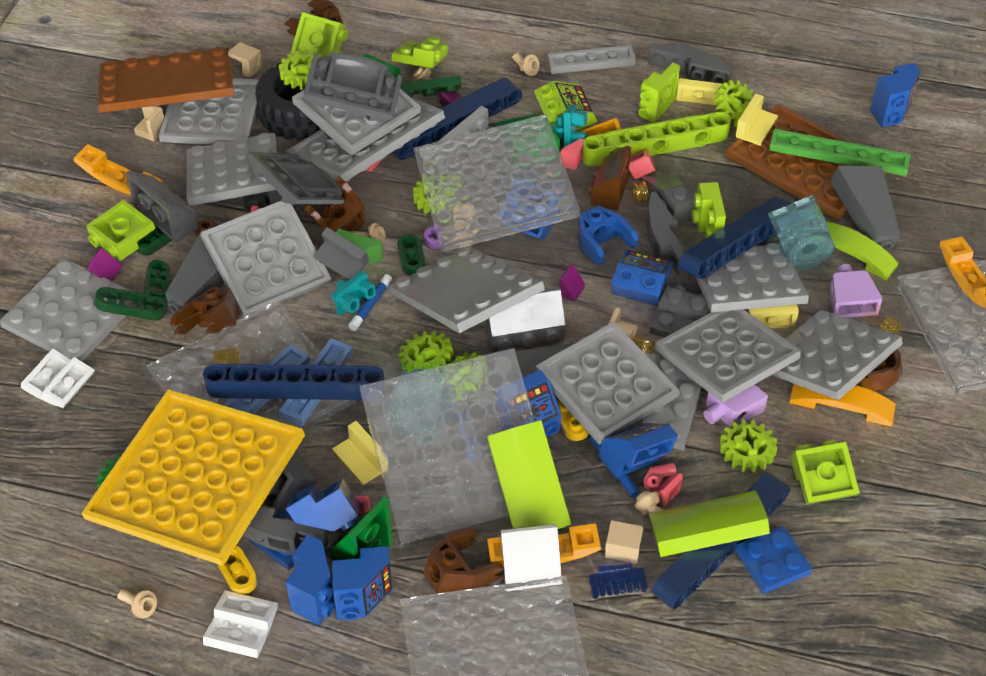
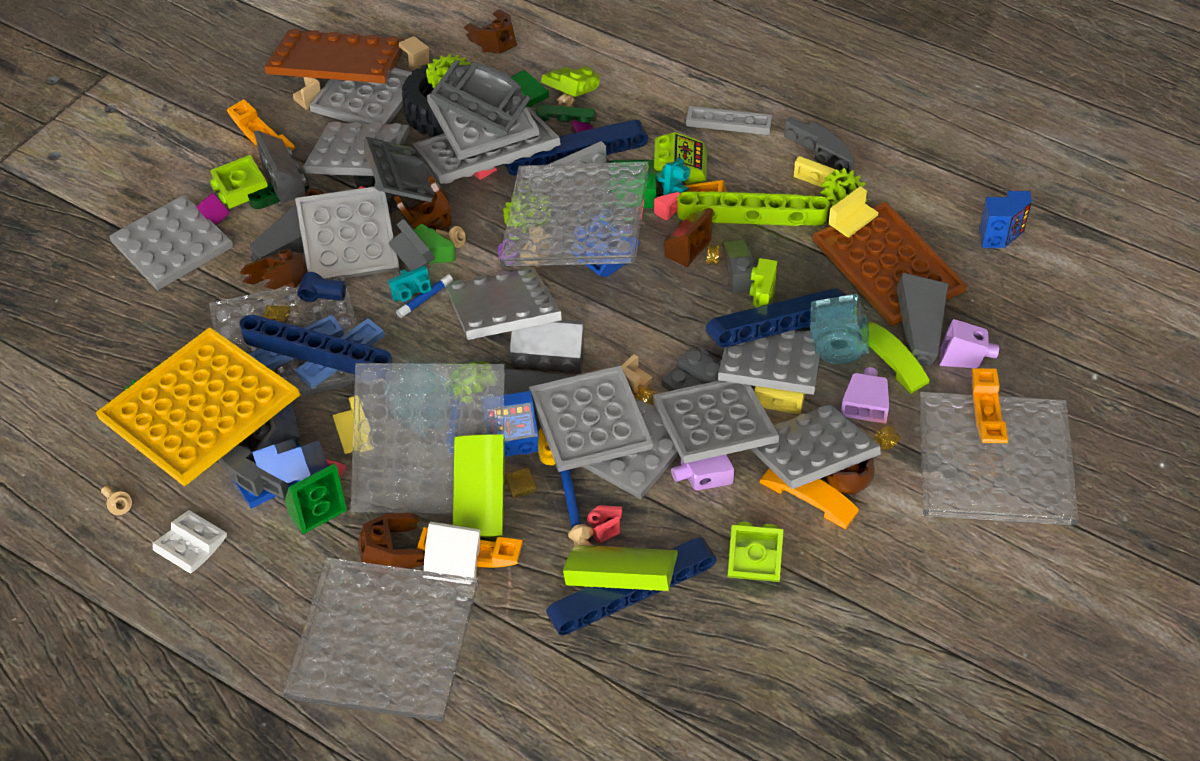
camera: 20 degrees right, 0 degrees up
(57, 378) = (134, 296): white slope -> none
(149, 297) = (236, 247): dark green beam -> none
(239, 571) = (205, 497): yellow plate -> none
(257, 320) = (315, 287): none -> dark blue piece
(310, 583) = (257, 521): blue piece -> none
(319, 35) = (485, 46): lime plate -> none
(361, 582) = (297, 535): blue piece -> none
(410, 253) = (478, 260): dark green plate -> none
(426, 352) = (448, 350): lime gear -> none
(529, 64) = (668, 112): tan plate -> none
(564, 465) = (520, 482): none -> clear yellow tile
(571, 283) = (608, 323): magenta slope -> none
(608, 226) = (668, 280): blue piece -> none
(616, 574) = (526, 590): clear blue piece -> none
(623, 542) = (540, 562): tan panel -> none
(637, 447) = (589, 484): blue piece -> none
(641, 164) = (728, 229): coral slope -> none
(641, 277) = (673, 331): blue piece -> none
(658, 93) = (772, 166): lime plate -> none
(662, 234) = (716, 291): dark grey slope -> none
(748, 445) = (709, 514): lime gear -> none
(773, 559) = (672, 617): blue plate -> none
(839, 151) = (919, 261): bright green plate -> none
(921, 222) = (966, 346): none -> lavender torso

